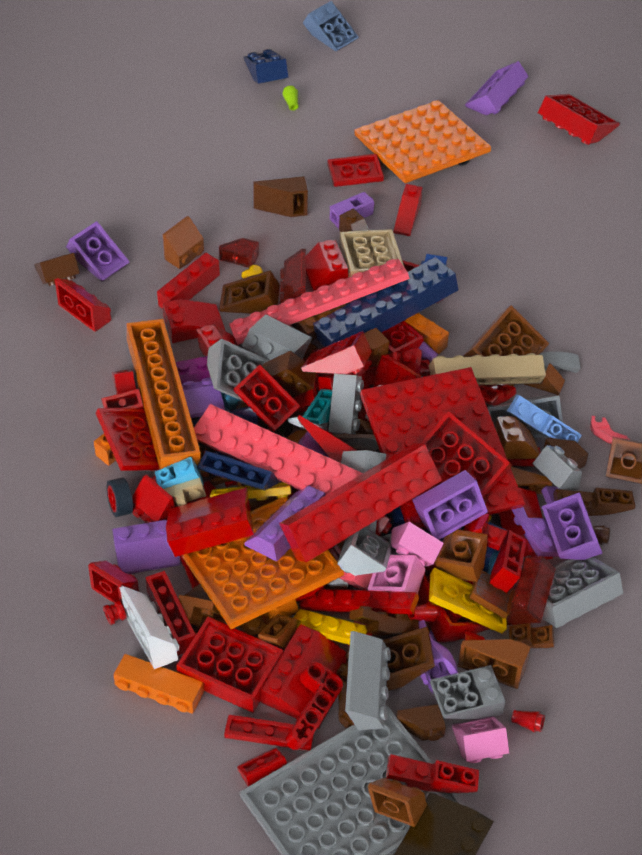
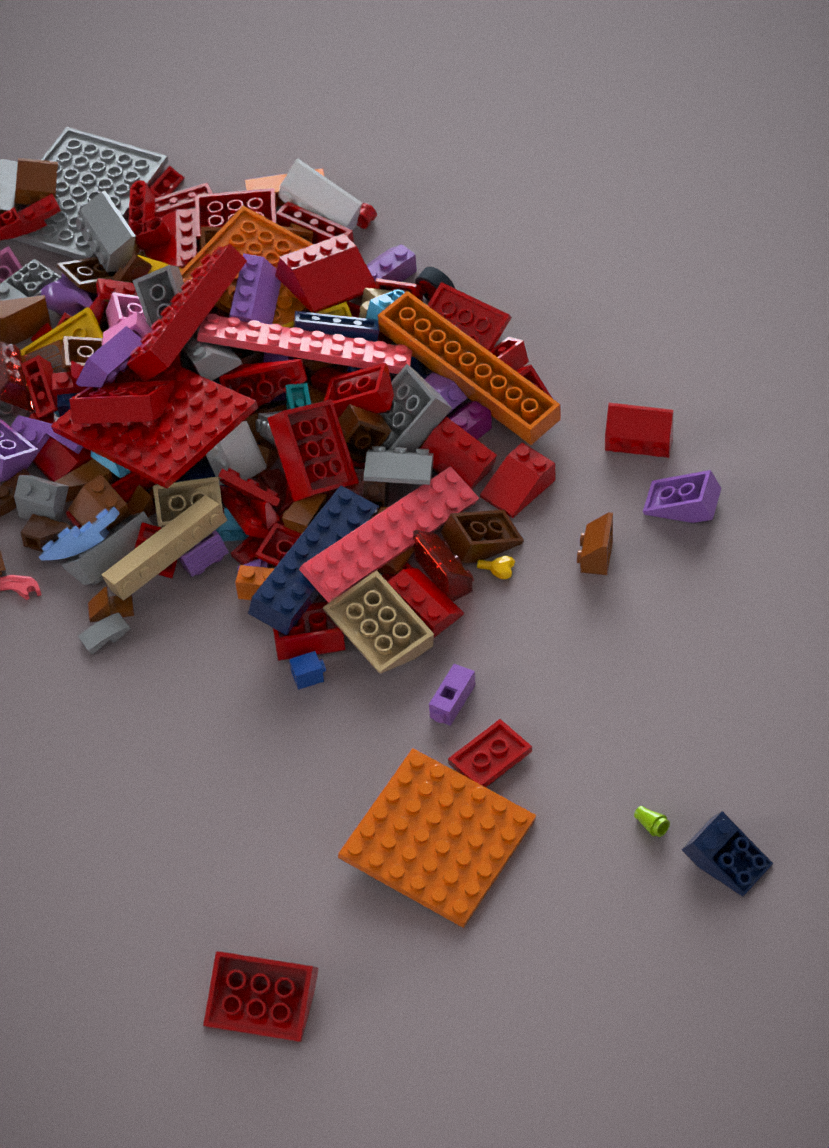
camera: 155 degrees right, 0 degrees up
(58, 267) = (707, 453): reddish brown slope -> none
(108, 578) = (381, 225): red slope -> none
(190, 280) = (555, 512): red brick -> none
(240, 252) = (532, 577): clear red slope -> none
(281, 196) = (536, 654): reddish brown slope -> none
(330, 27) = (698, 969): sand blue slope -> none
(352, 221) = (428, 671): reddish brown slope -> none
(408, 209) = (388, 733): red slope -> none
(423, 722) = (52, 256): reddish brown slope -> none
(498, 89) = (397, 982): medium lavender slope -> none
(508, 335) = (171, 614): dark orange slope -> none

